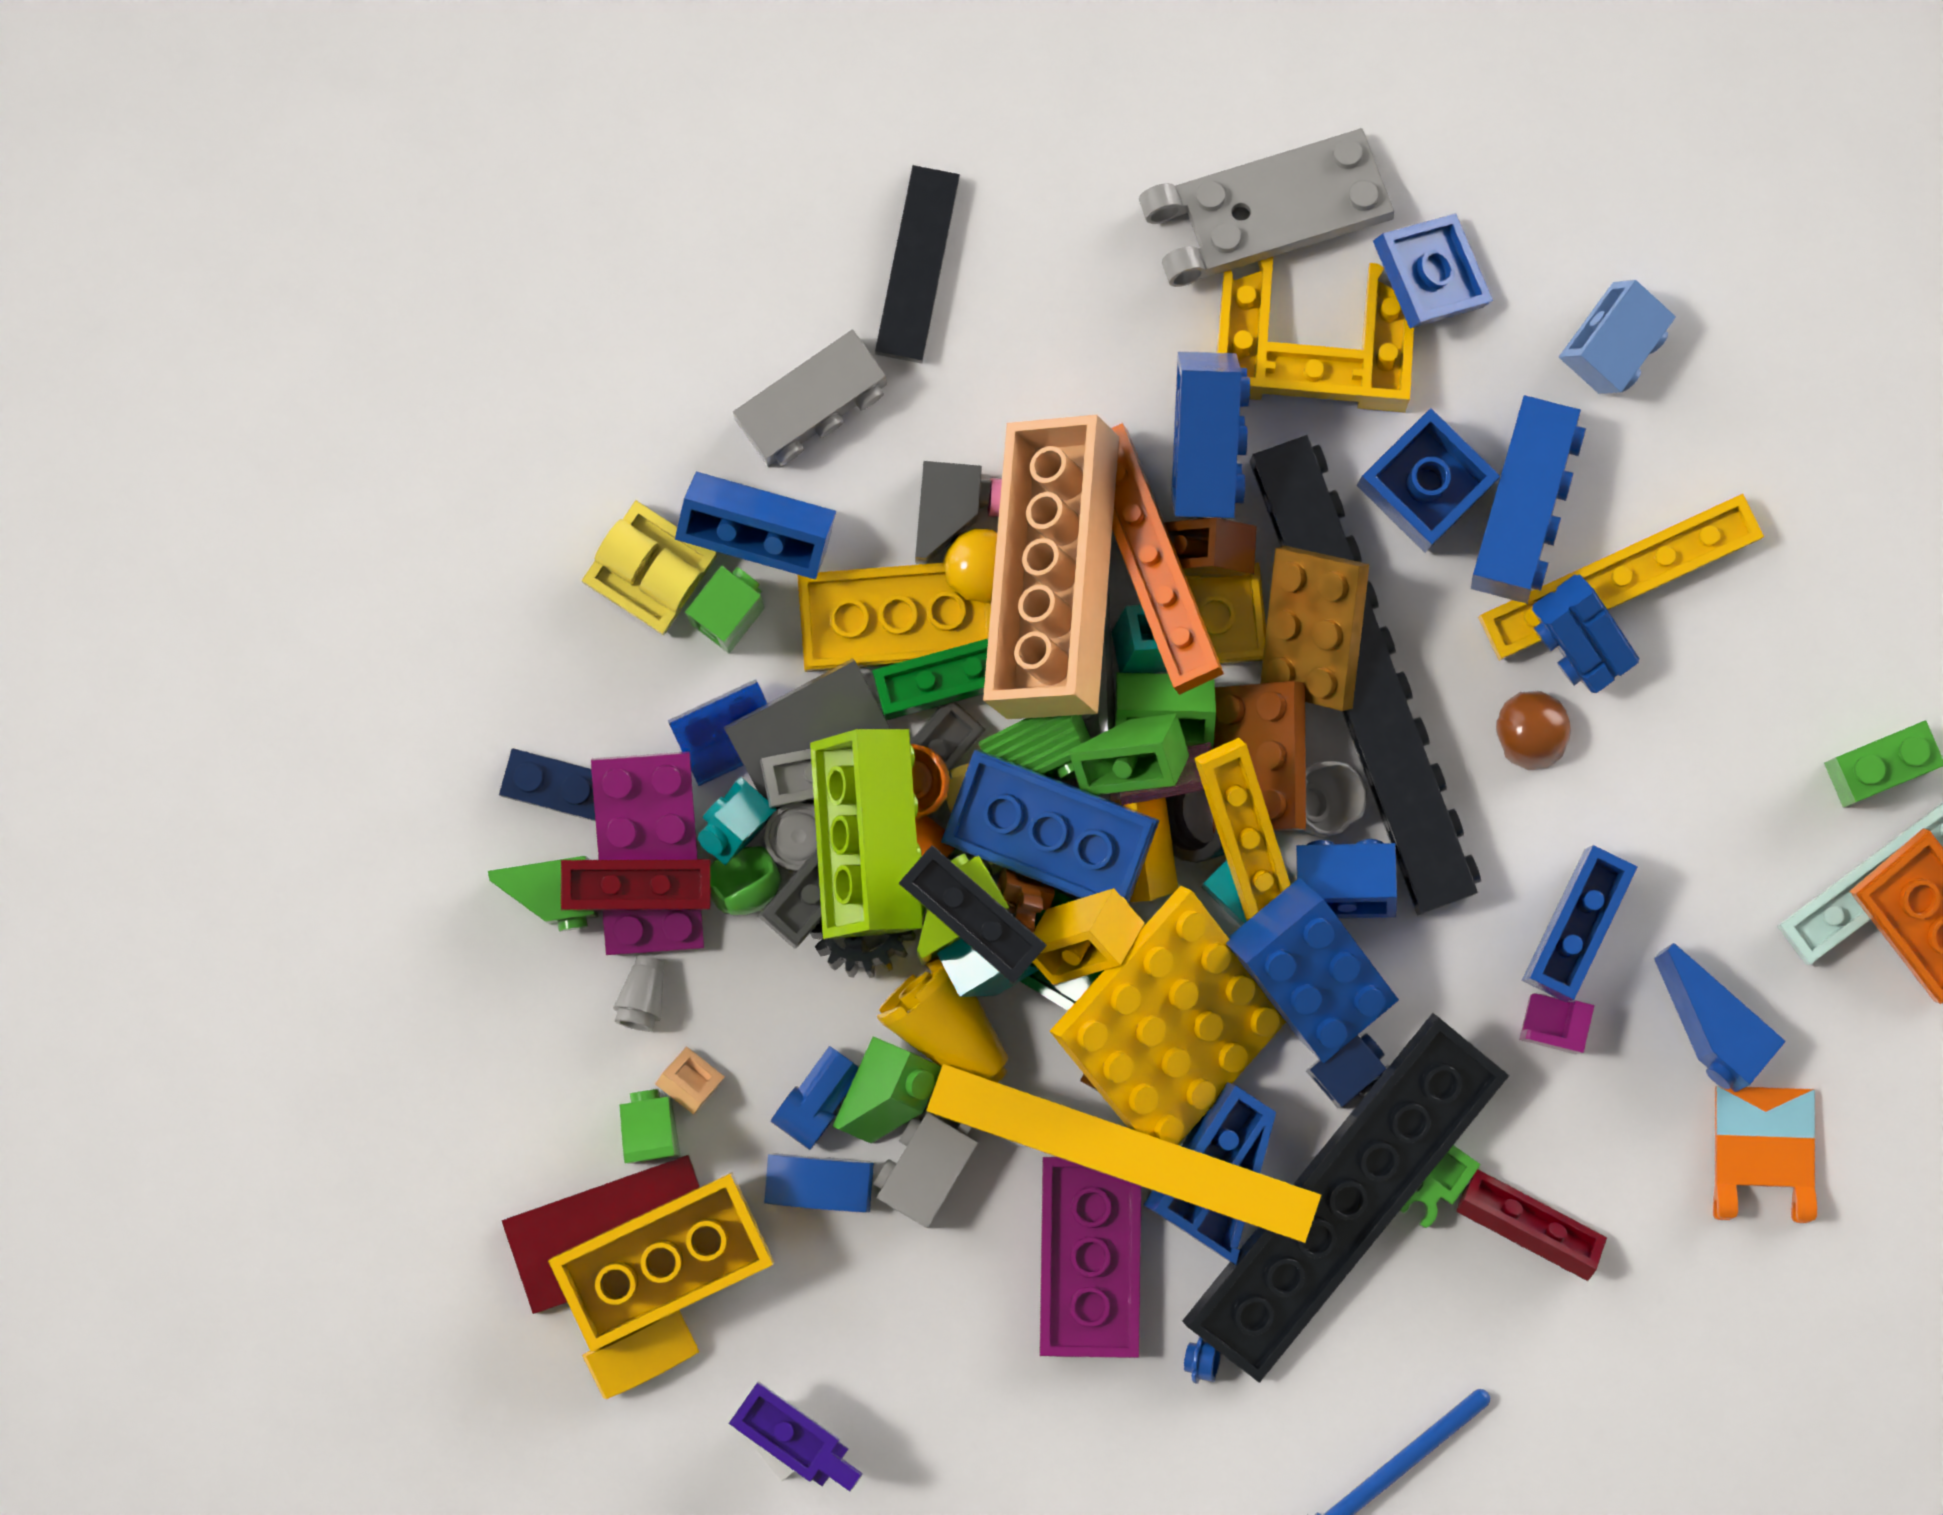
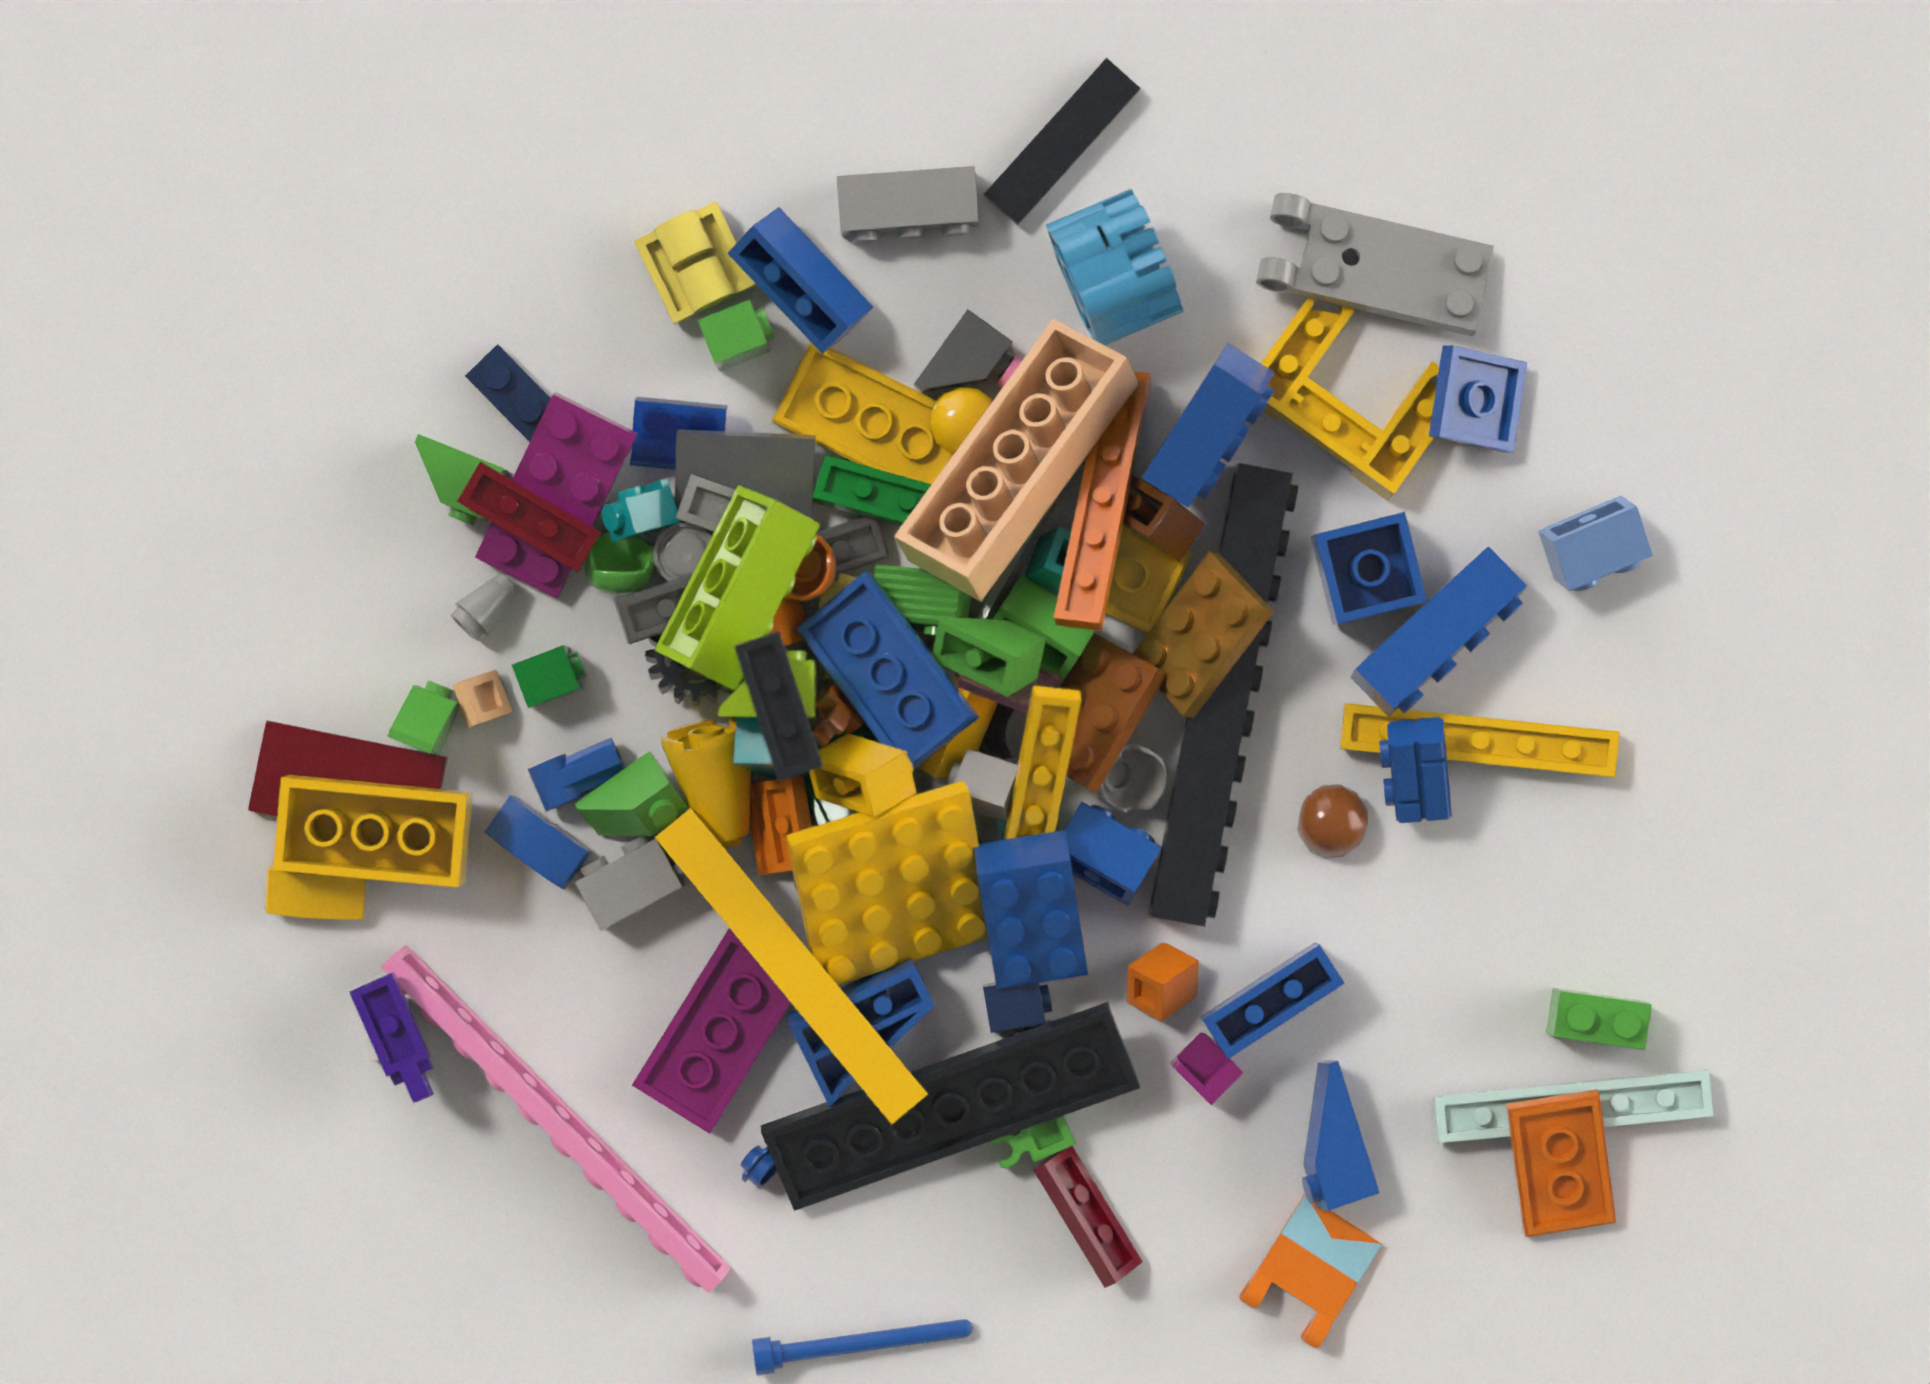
camera: 35 degrees right, 5 degrees up
(739, 1022) = (549, 675): none -> green brick
(1005, 1434) = (567, 1130): none -> bright pink plate
(1023, 1026) = (777, 811): none -> orange plate
(1031, 347) = (1114, 268): none -> dark azure piece
(1204, 873) = (988, 782): none -> light grey brick
(1468, 967) = (1162, 981): none -> orange panel

